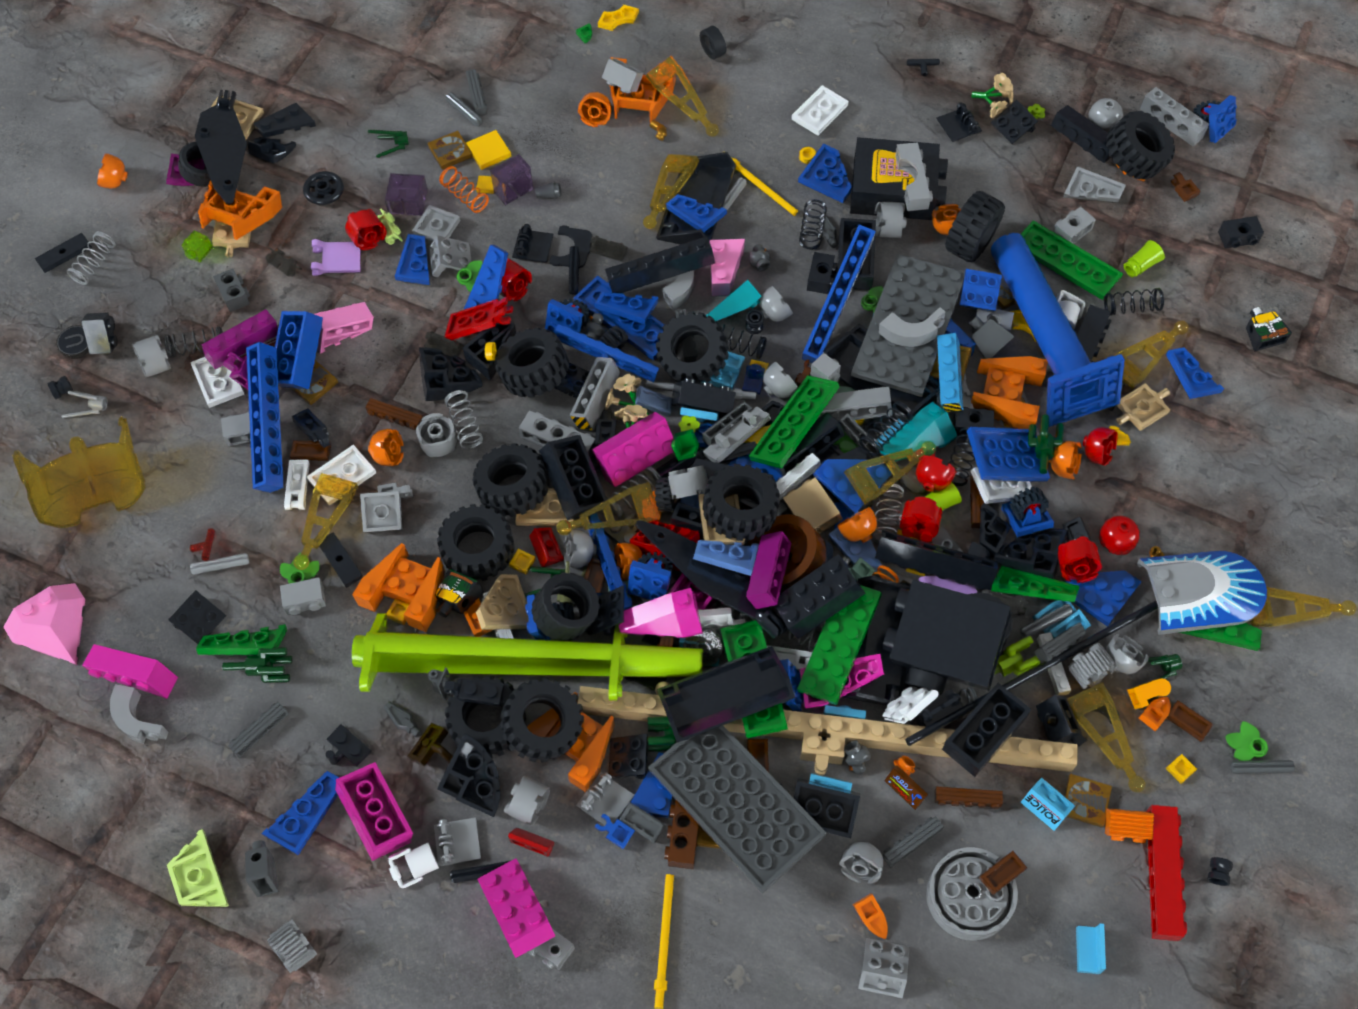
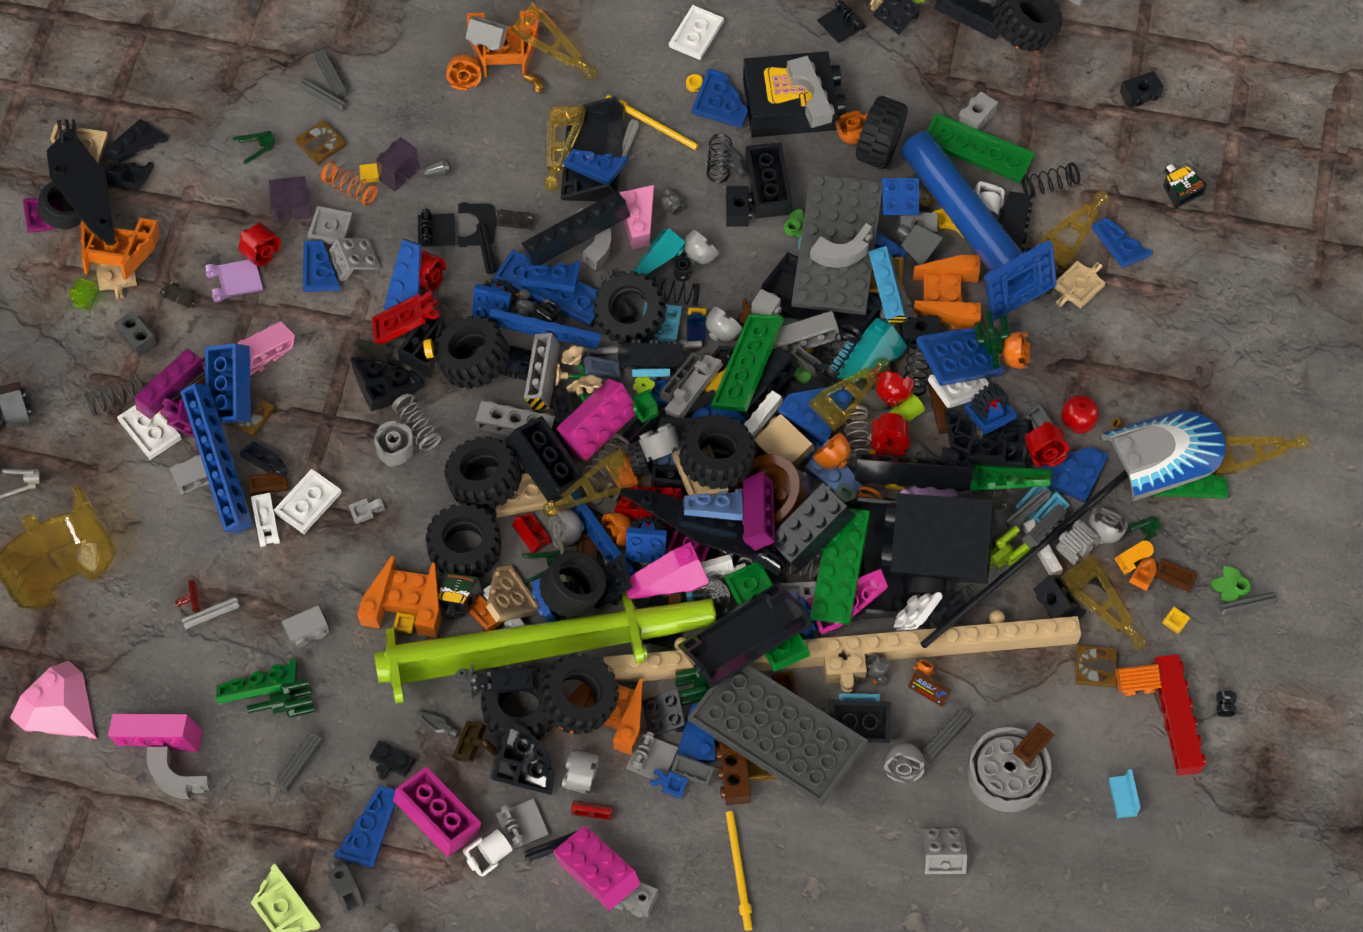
camera: 15 degrees left, 0 degrees up
(151, 356) = (75, 418): light grey brick -> none
(197, 617) = (205, 668): black hinge -> none
(290, 573) = (292, 602): bright green plate -> none
(323, 188) = (198, 194): black plate -> none
(331, 487) = (303, 515): clear yellow plate -> none
(334, 552) = (324, 577): black tile -> none
(381, 511) = (360, 529): light grey plate -> none
(386, 447) = (345, 465): orange cylinder -> none
(392, 230) = (287, 241): yellowish green hinge -> none
(393, 414) = (343, 430): reddish brown piece -> none
(472, 271) = (384, 270): bright green plate -> none
(488, 149) = (361, 134): yellow tile -> none
(522, 561) = (512, 551): yellow tile -> none
(839, 293) = (762, 227): blue brick -> none
(844, 711) = (857, 630): medium azure plate -> none
(872, 915) = (923, 808): orange plate -> none
(890, 219) = (794, 138): light grey brick -> none
(968, 797) = (988, 685): reddish brown piece -> none
(986, 729) = (993, 618): black brick -> none
(1047, 804) = (1061, 676): medium azure panel -> none
(1093, 186) = (989, 67): light grey wing -> none
(1100, 444) = (1045, 330): red cylinder -> none
(1123, 439) = (1061, 319): yellow tile -> none
(1145, 258) = (1053, 134): lime plant -> none
(1185, 189) = (1079, 53): reddish brown plate -> none

